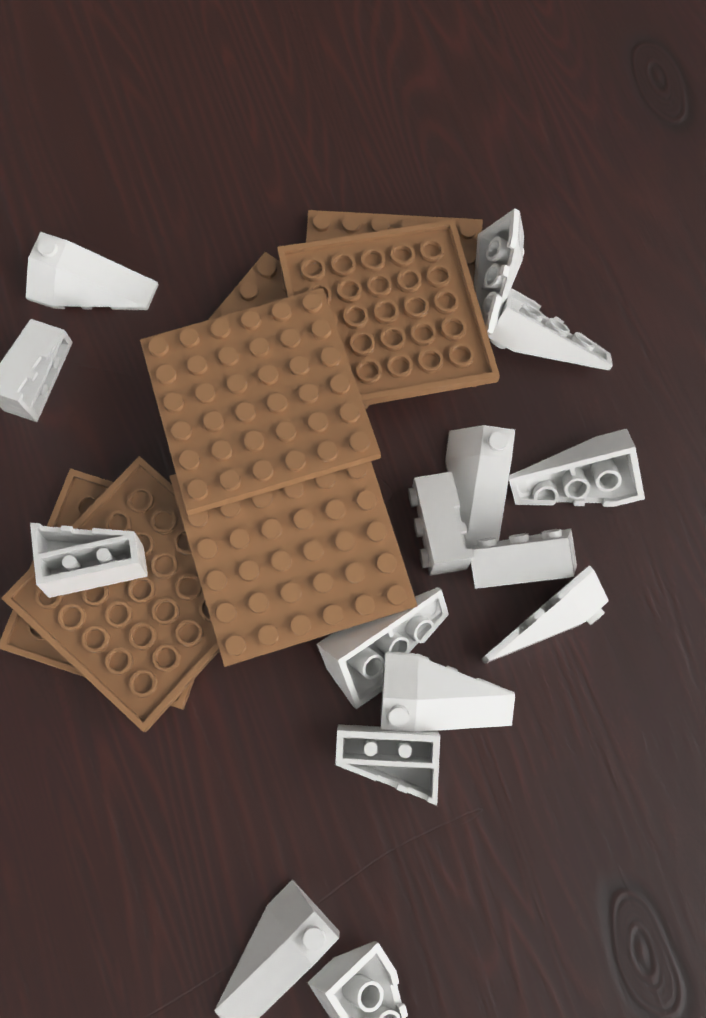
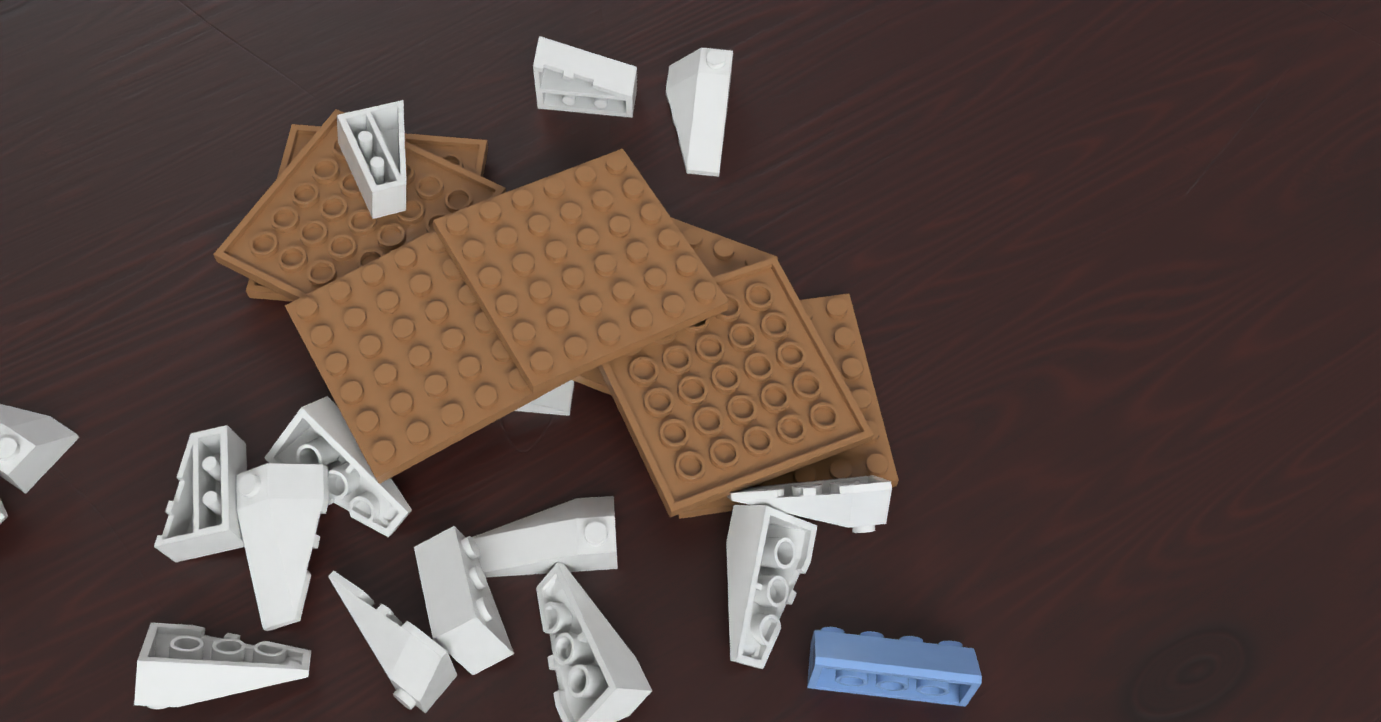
camera: 75 degrees right, 15 degrees down
(439, 524) = (488, 495): white wedge -> none
(540, 777) = (188, 667): none -> white wedge
(633, 260) = (893, 667): none -> light blue slope

